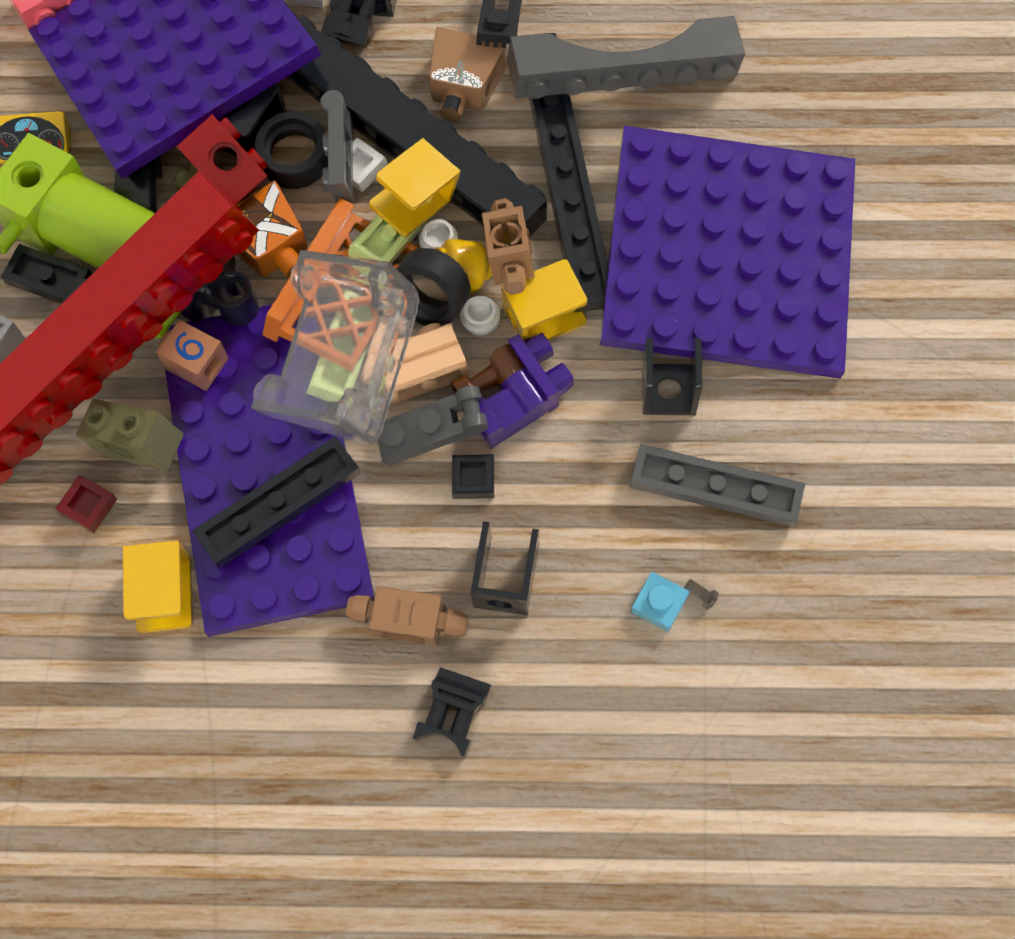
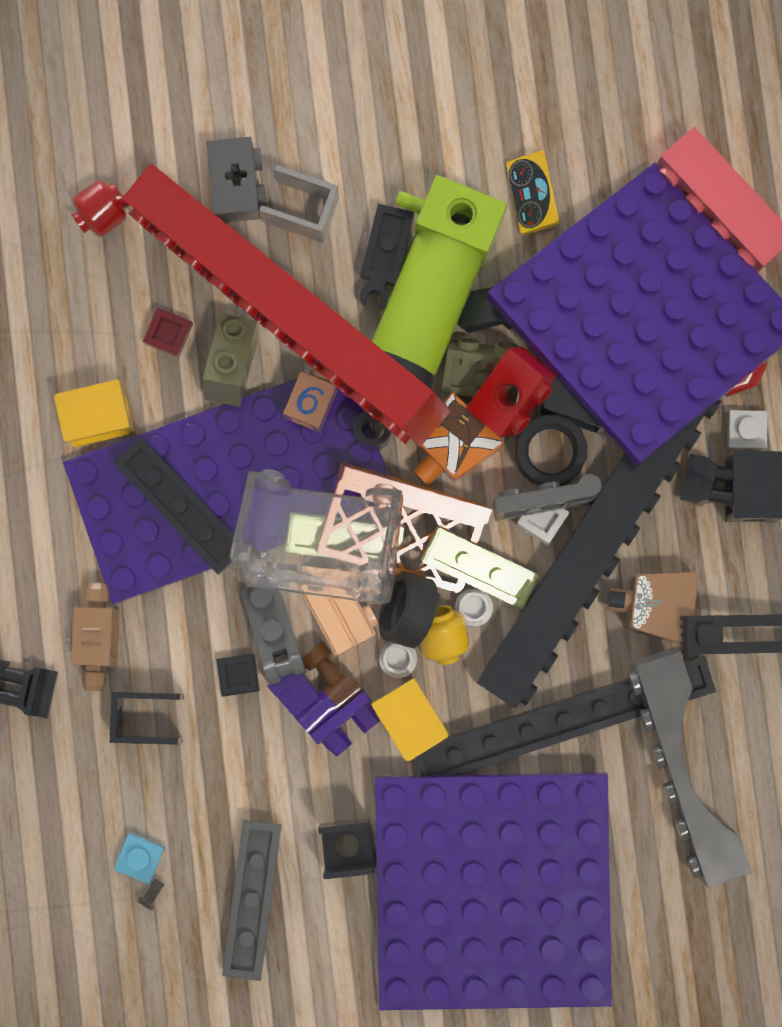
camera: 80 degrees right, 15 degrees up
(415, 187) = (506, 580): yellow piece -> none
(512, 263) = (425, 686): medium nougat piece -> none

